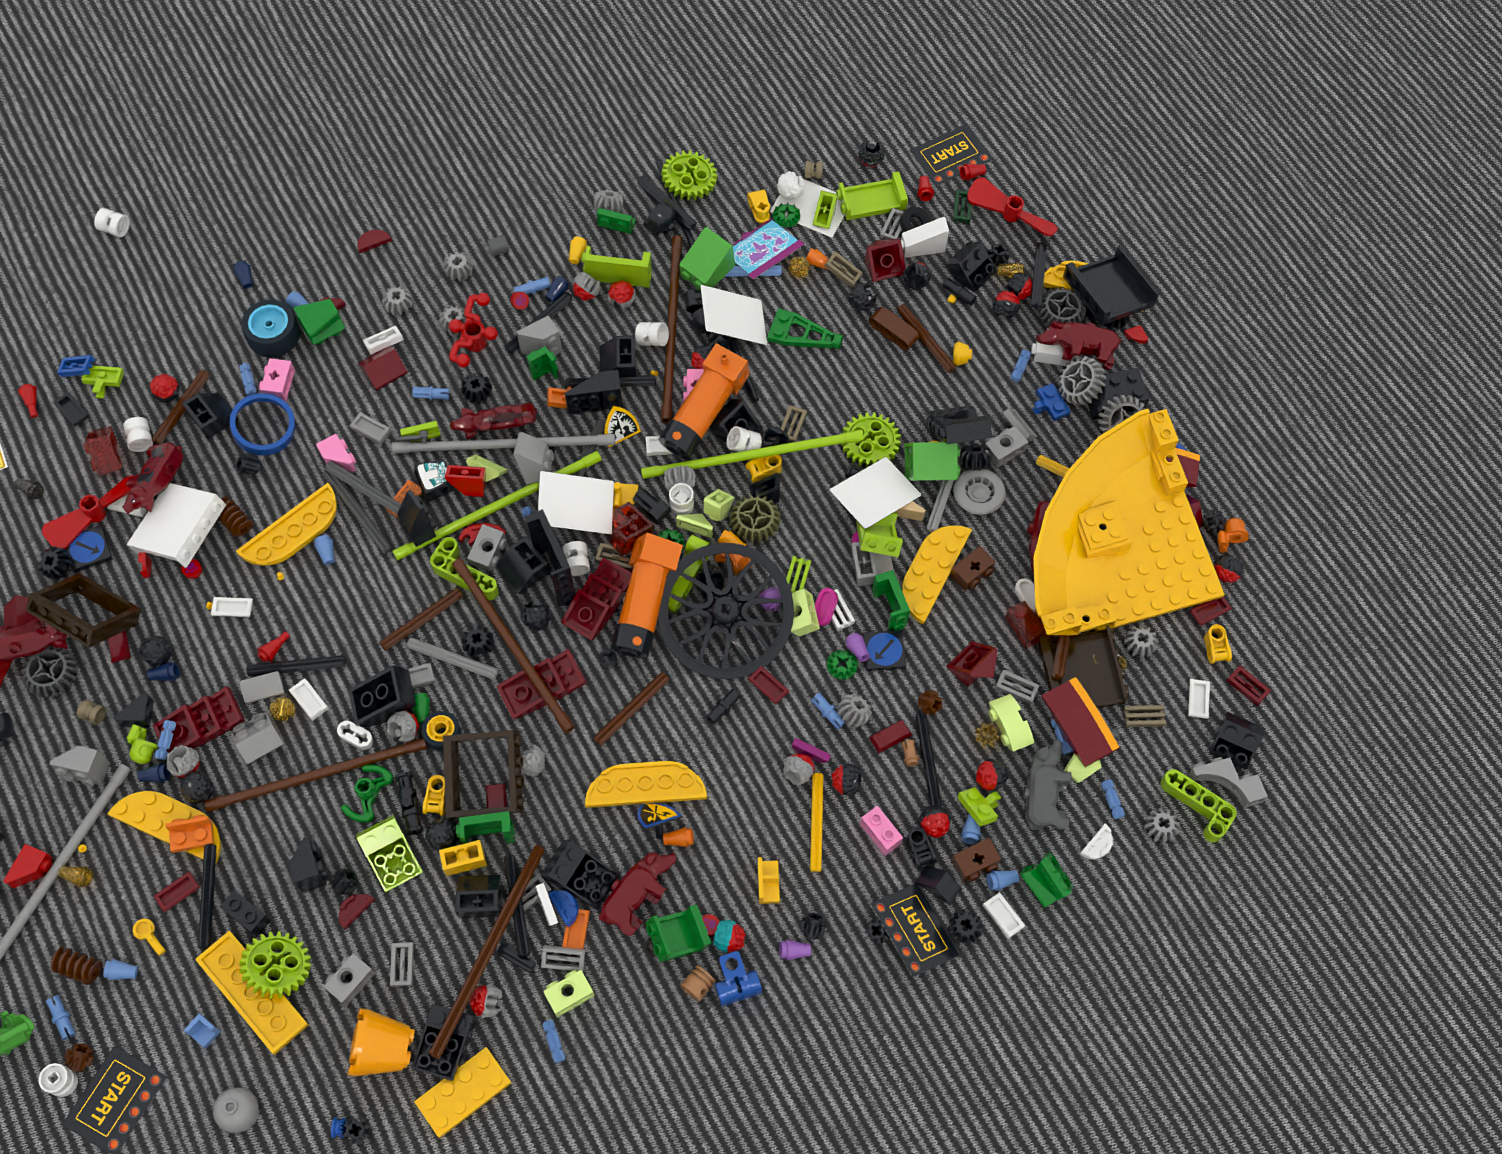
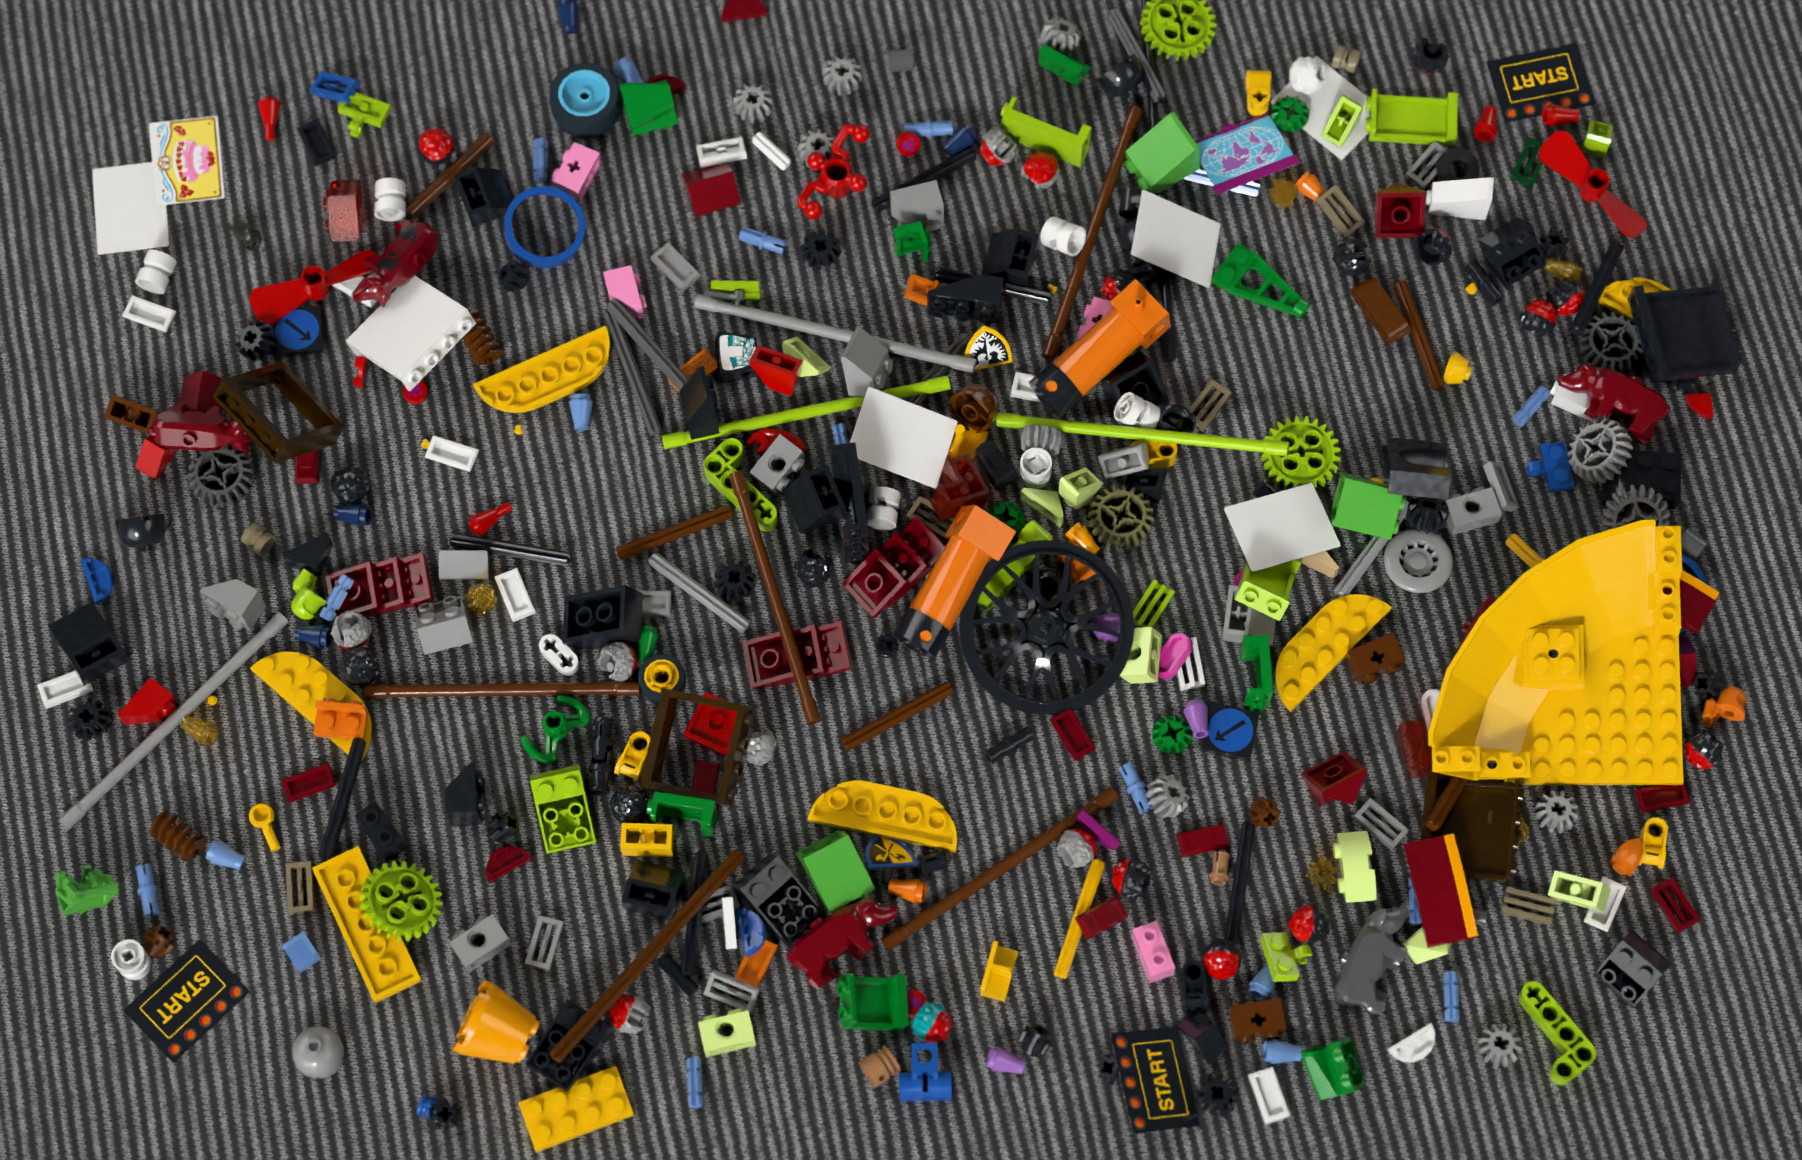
camera: 20 degrees right, 5 degrees up
(194, 995) = (301, 909): none -> dark tan tile
(420, 330) = (771, 151): none -> white axle
(491, 757) = (711, 727): none -> red tile
(494, 418) = (833, 297): dark red animal -> none
(577, 247) = (1001, 92): yellow cone -> none
(618, 839) = (835, 871): none -> bright green slope
(623, 468) = (974, 407): none -> reddish brown cylinder
(684, 872) = (902, 933): none -> reddish brown piece
(691, 811) = (932, 863): none -> black bush
(745, 477) = (1124, 460): none -> light grey slope
(833, 816) = (1101, 917): none -> dark red tile
(1004, 180) = (1597, 139): none -> lime slope
(1180, 693) = (1579, 891): none -> yellowish green brick
(1204, 659) = (1628, 857): none -> orange plate
(1222, 771) = (1597, 1000): light grey arch -> none

